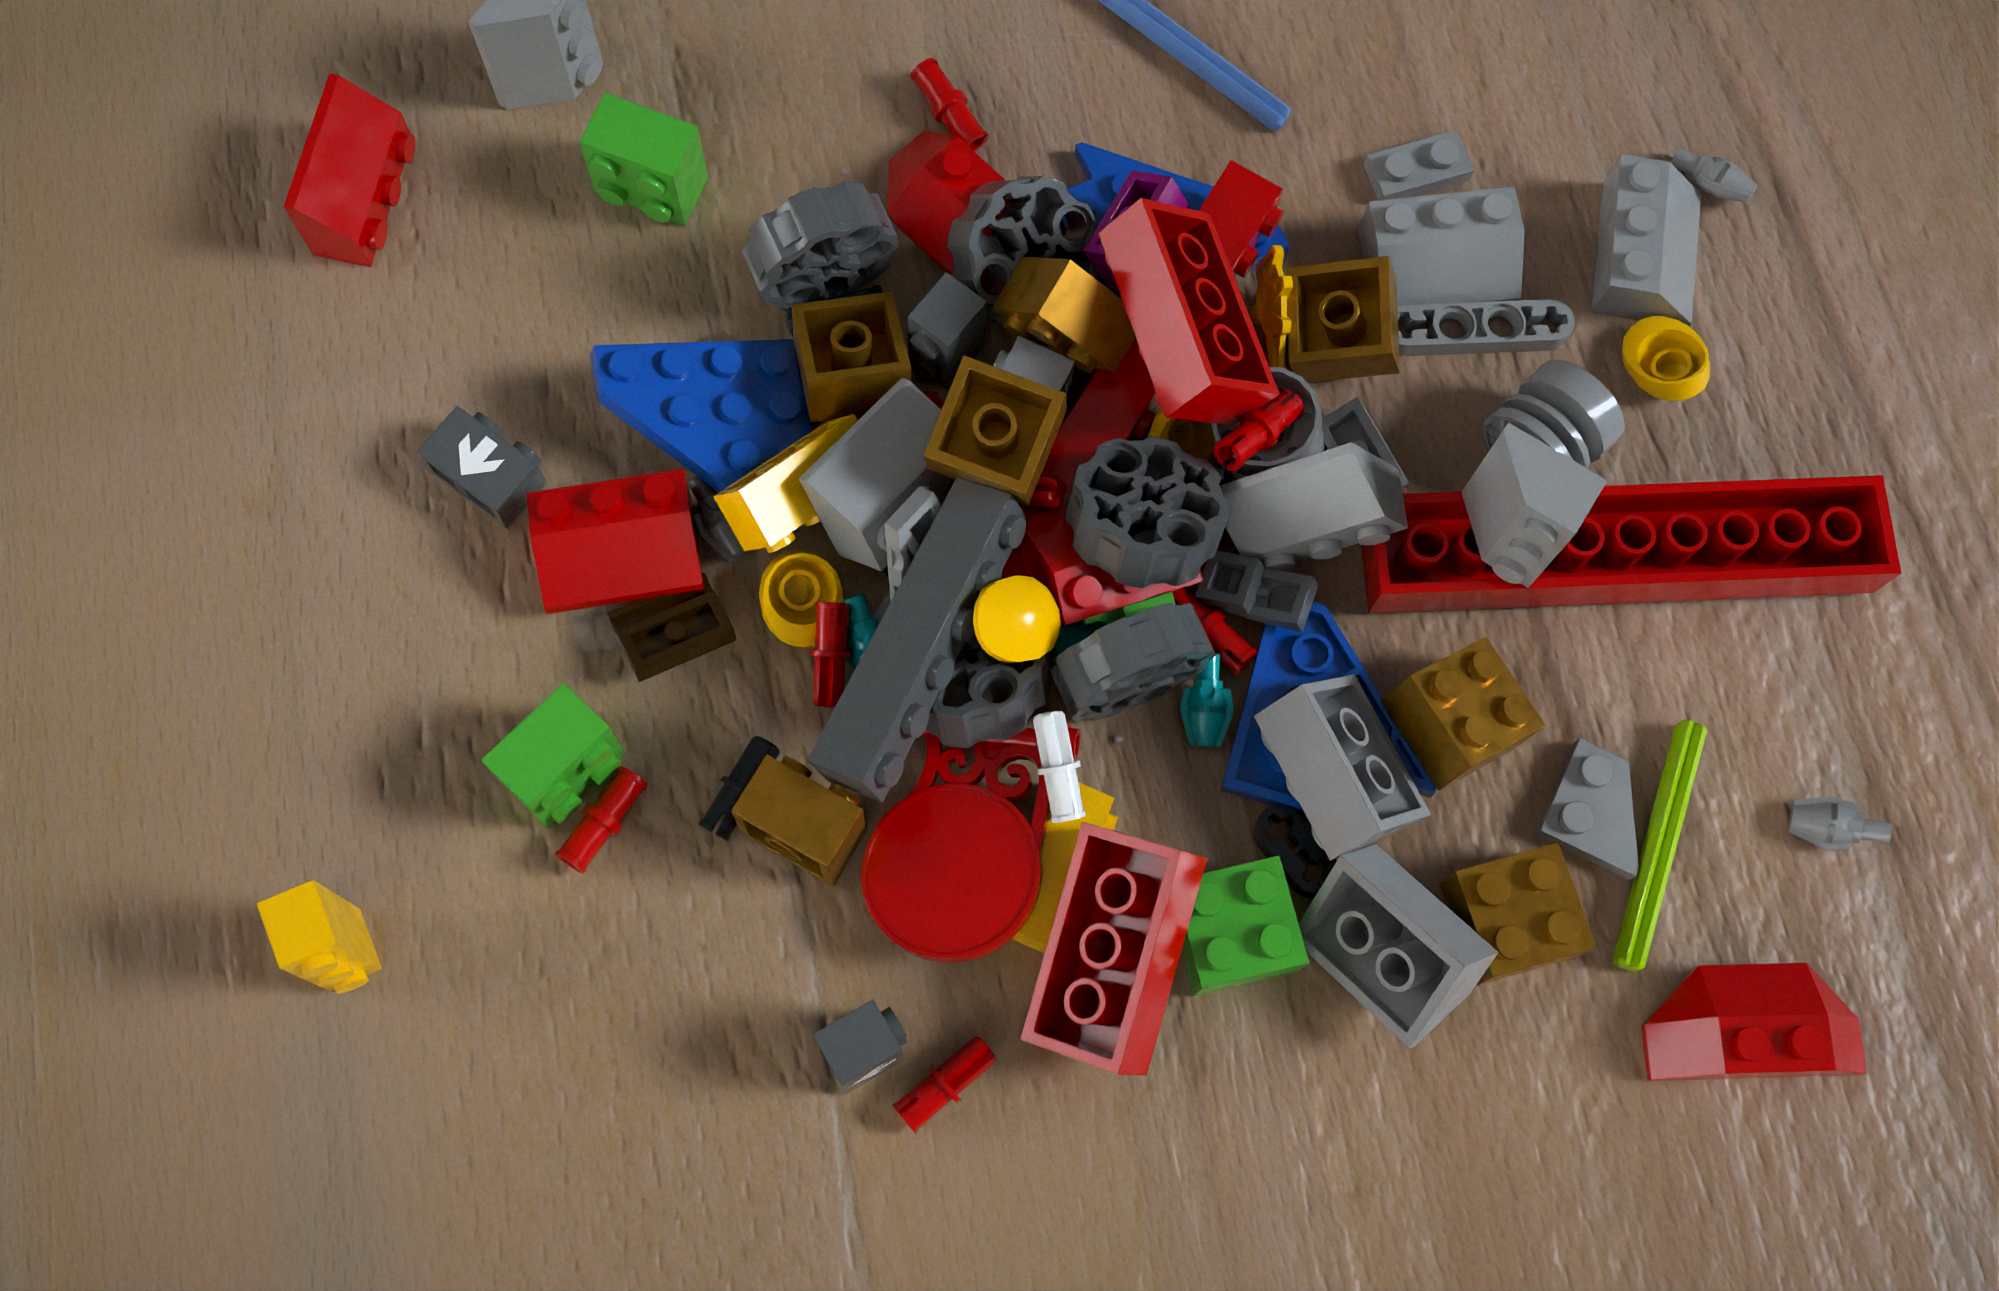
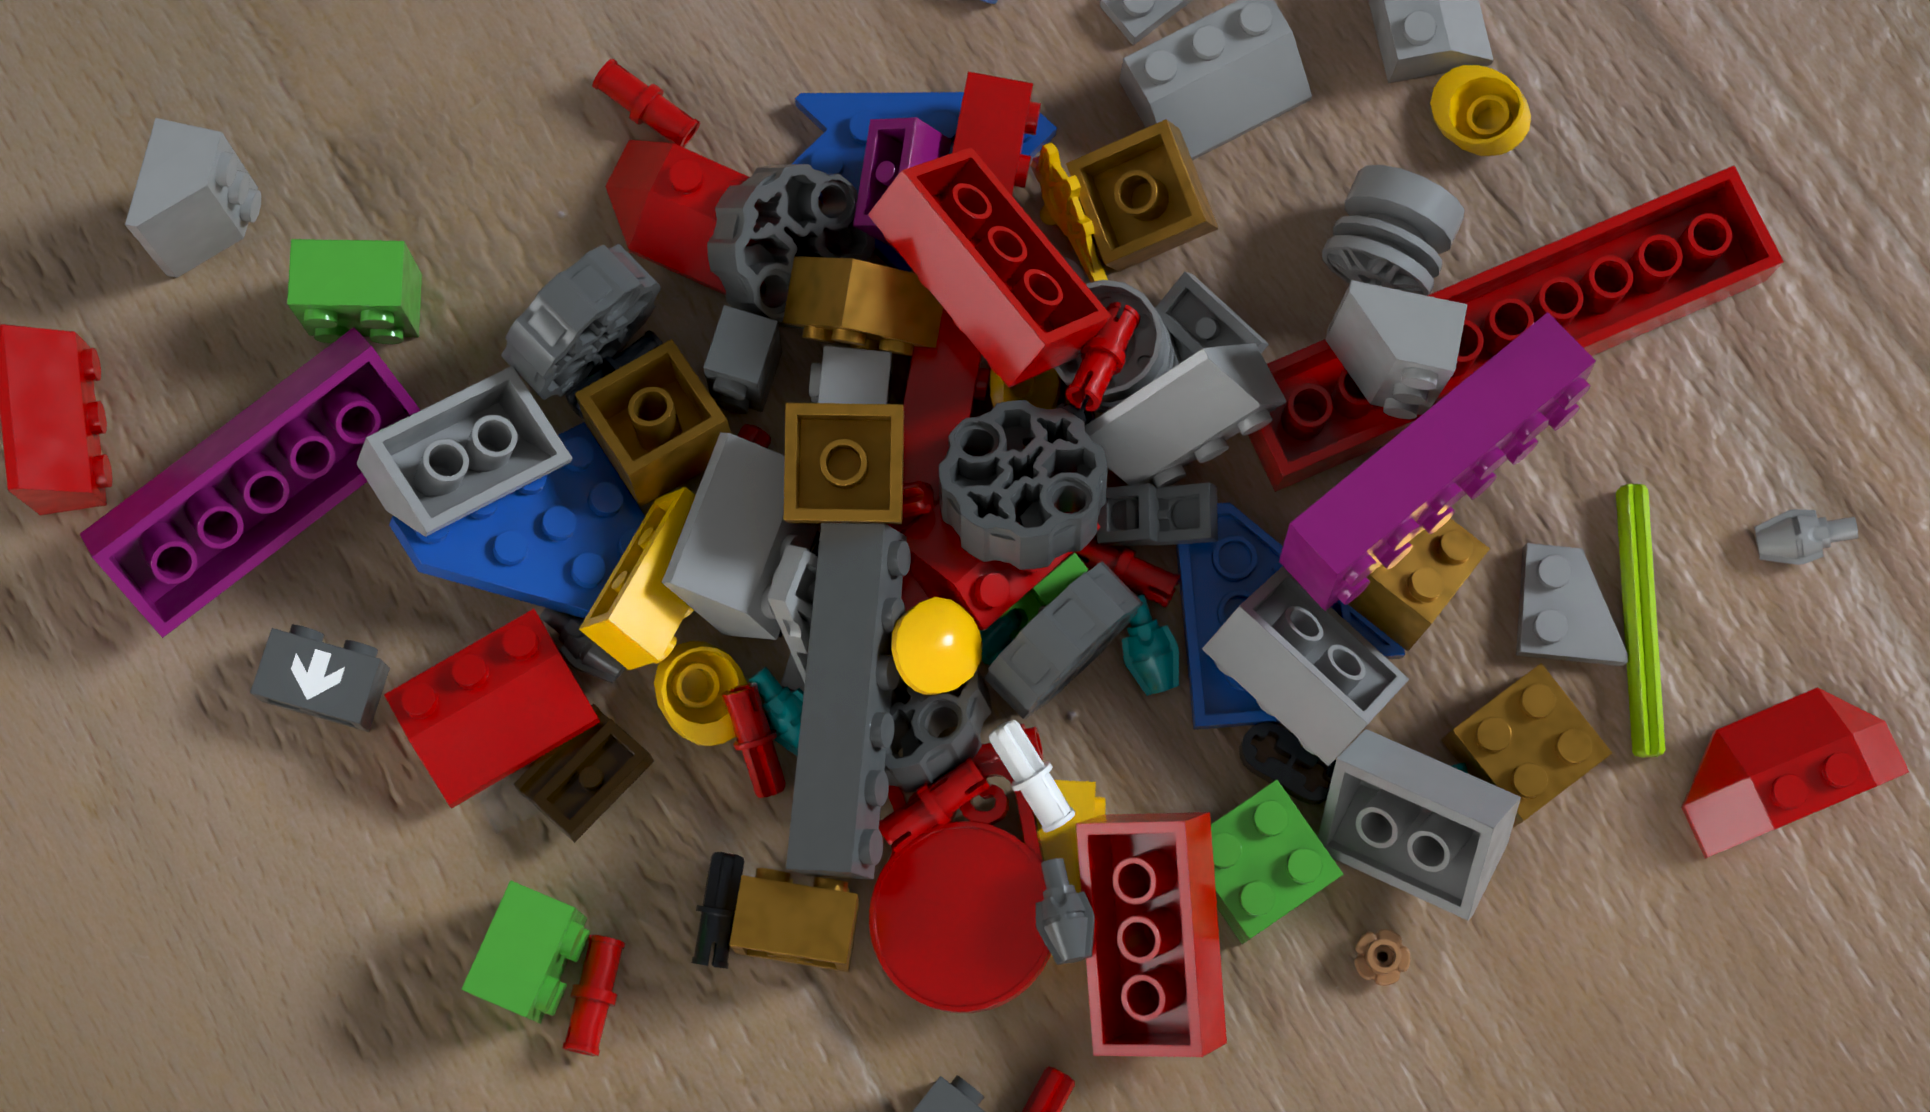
camera: 20 degrees left, 5 degrees up
(494, 283) = (249, 484): none -> magenta brick
(673, 312) = (461, 453): none -> light grey slope
(962, 762) = (933, 804): none -> red pin
(1040, 900) = (1064, 916): none -> dark grey piece
(1302, 1058) = (1397, 957): none -> medium nougat plate
(1477, 335) = (1281, 152): light grey beam -> none
(1526, 622) = (1437, 463): none -> magenta brick

